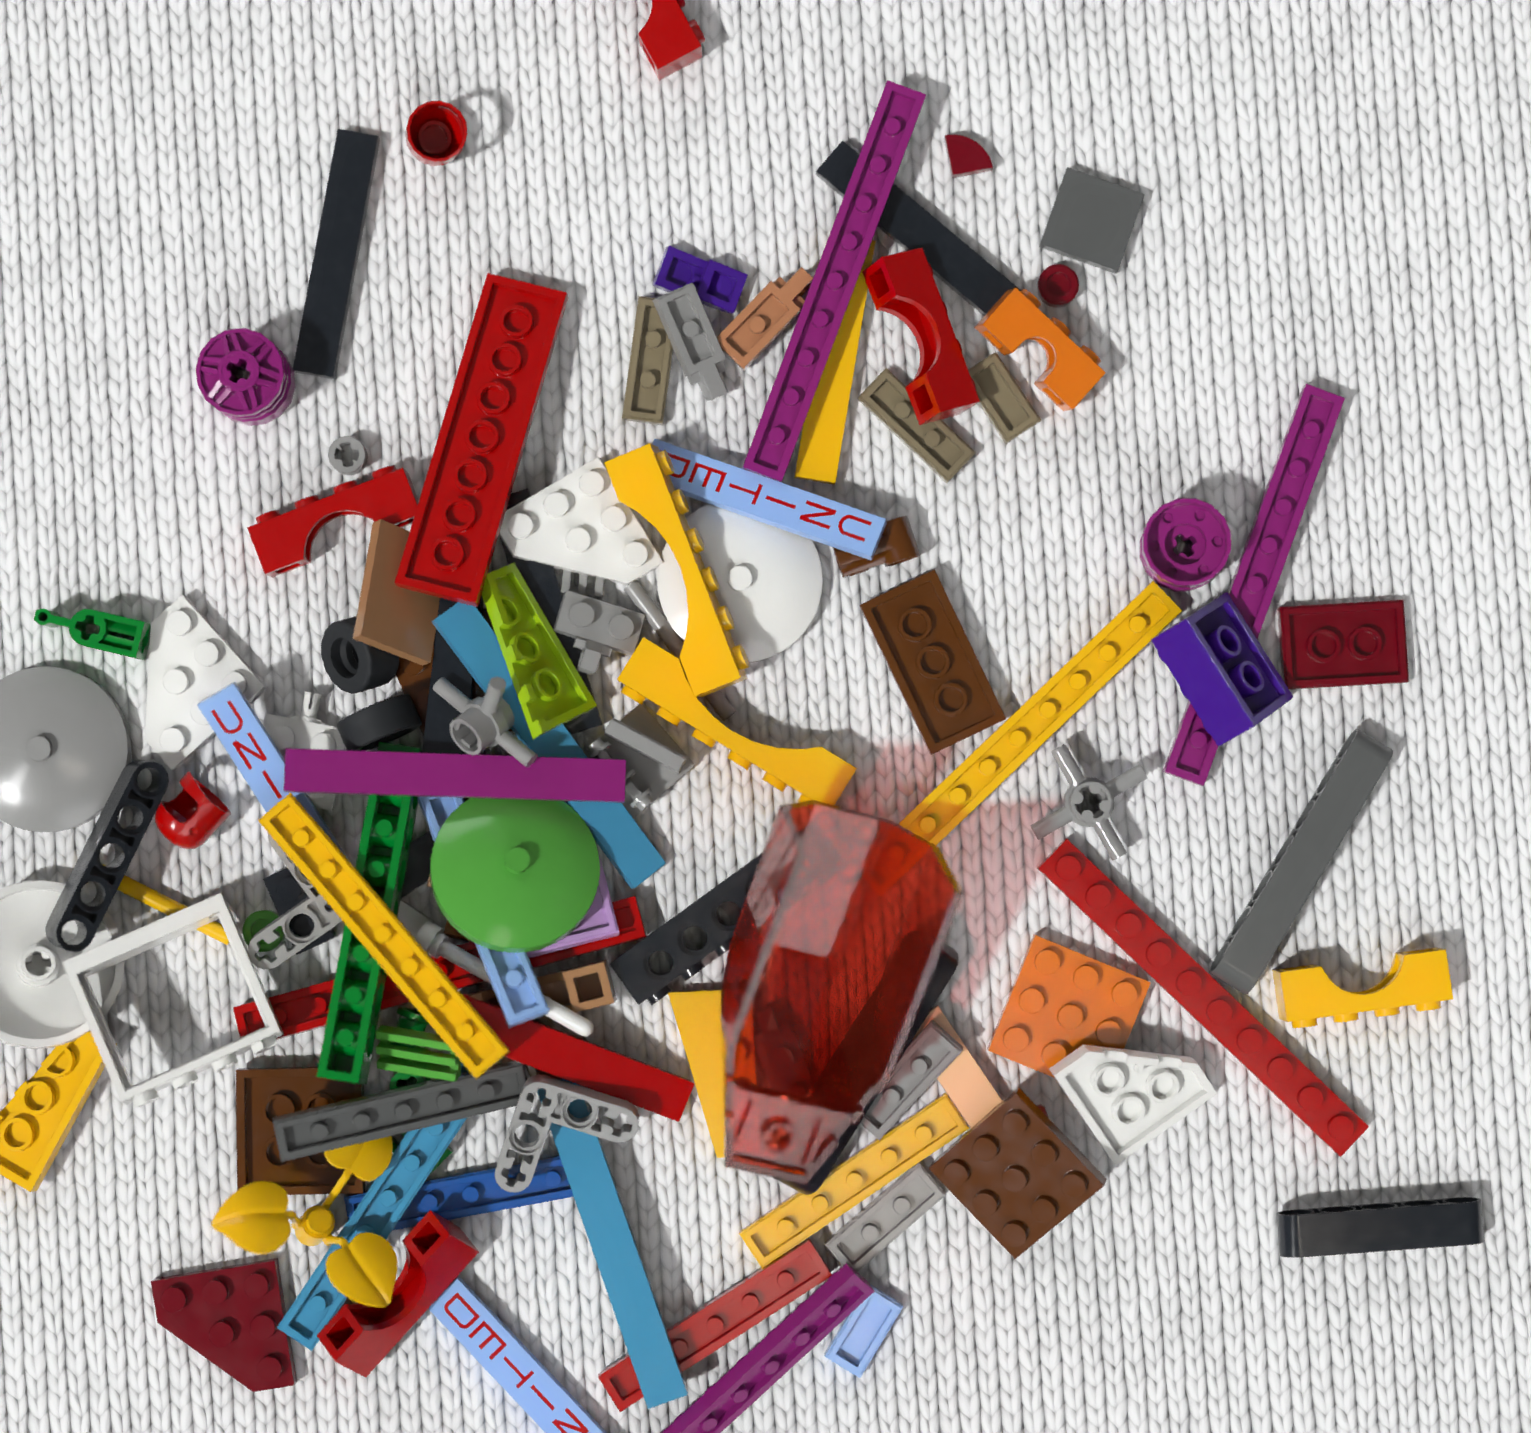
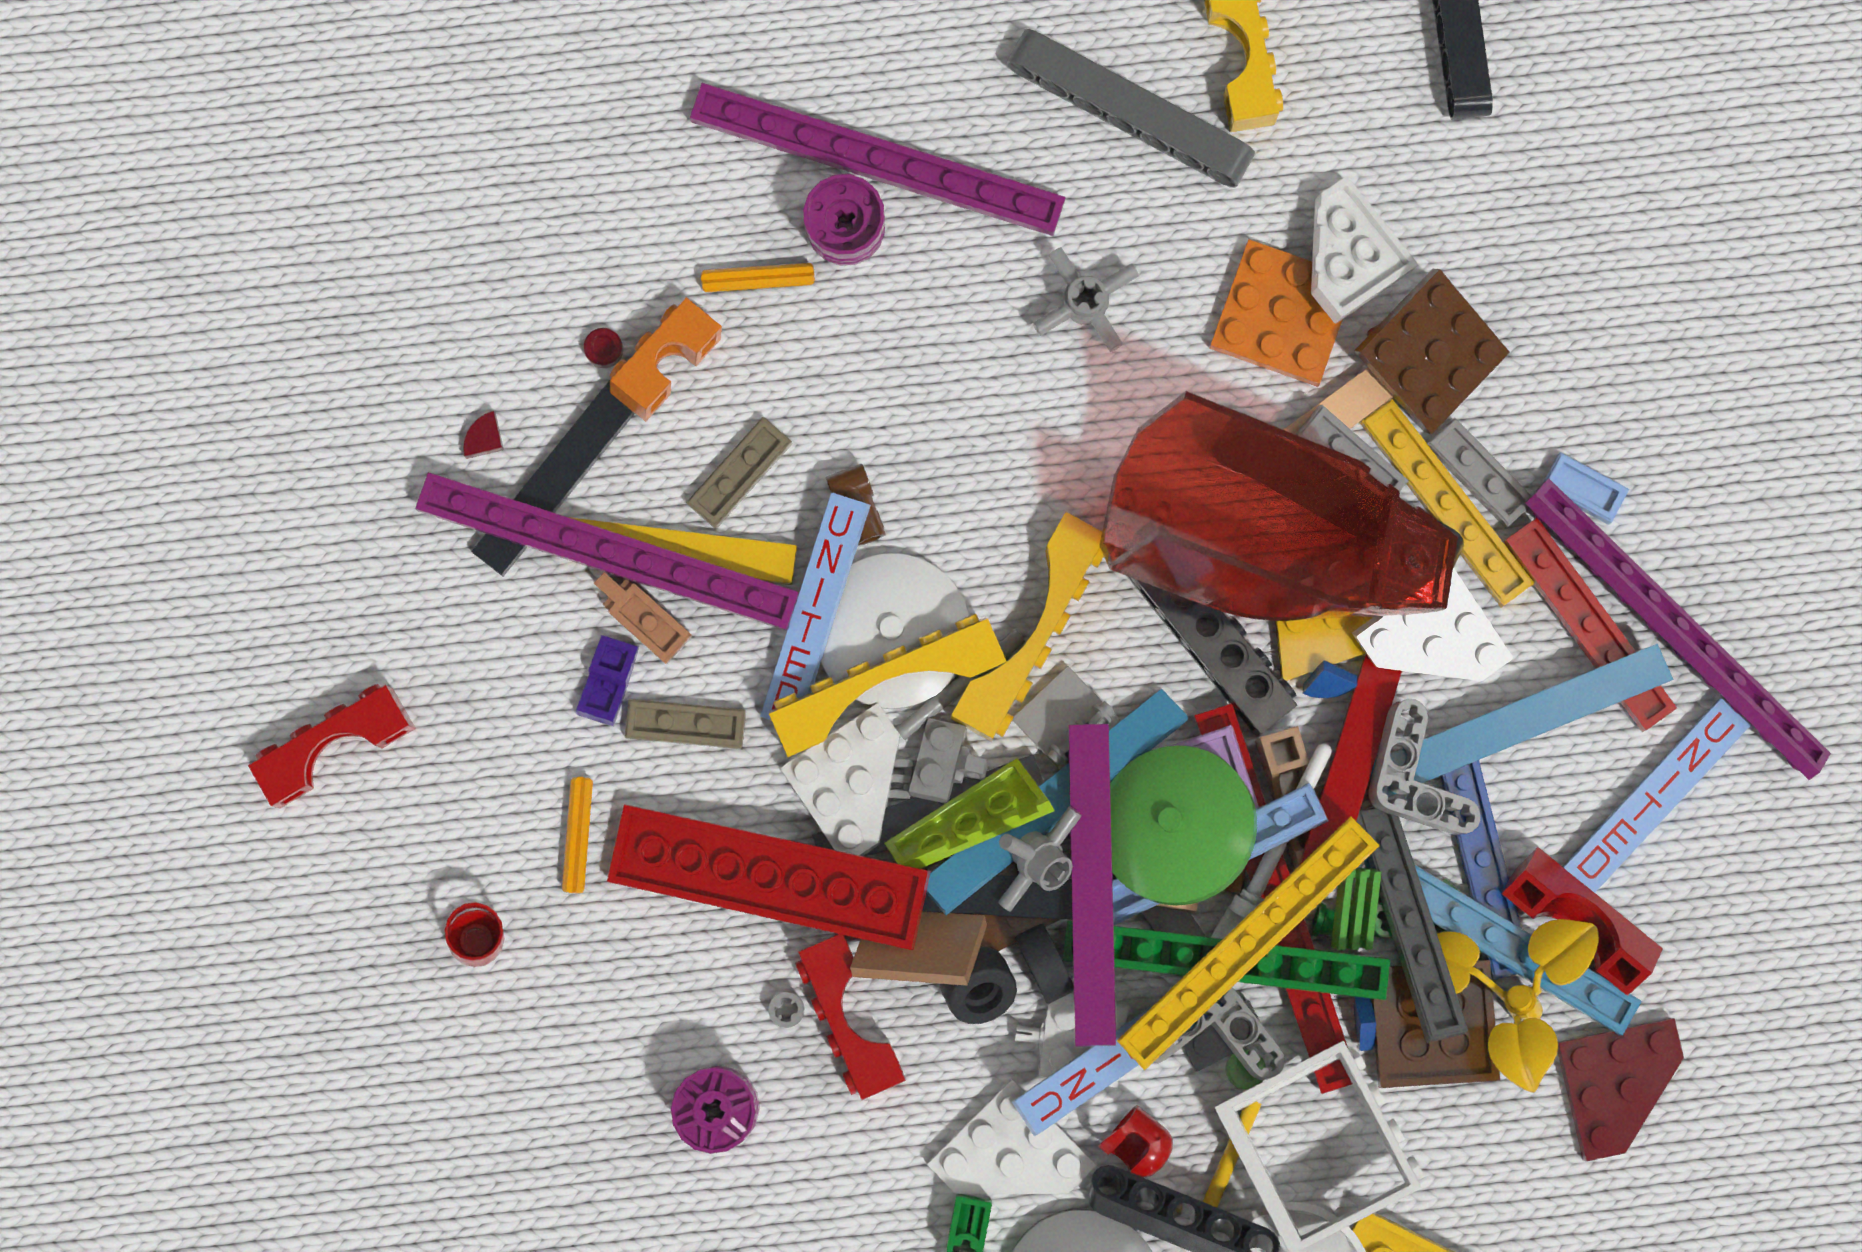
camera: 90 degrees left, 5 degrees down
(299, 1057) = (1364, 1023): none -> blue tile
(336, 254) = (591, 1030): black tile -> none
(539, 244) = (577, 835): none -> light orange axle
(645, 745) = (1053, 709): light grey tile -> none
(664, 1041) = (1329, 682): none -> blue tile
(693, 339) = (665, 682): light grey hinge -> none
(695, 1176) = (1439, 643): none -> white plate
(906, 289) = (615, 481): red arch -> none
(932, 662) = (961, 448): reddish brown plate -> none
(1002, 398) = (710, 396): dark tan tile -> none
(1042, 715) = (1006, 346): yellow plate -> none
(1091, 220) = (541, 319): dark grey tile -> none
(1128, 452) = (757, 277): none -> light orange axle
(1203, 997) = (1258, 194): red plate -> none
(1222, 669) = (959, 181): dark purple slope -> none
(1343, 644) = (929, 78): dark red tile -> none

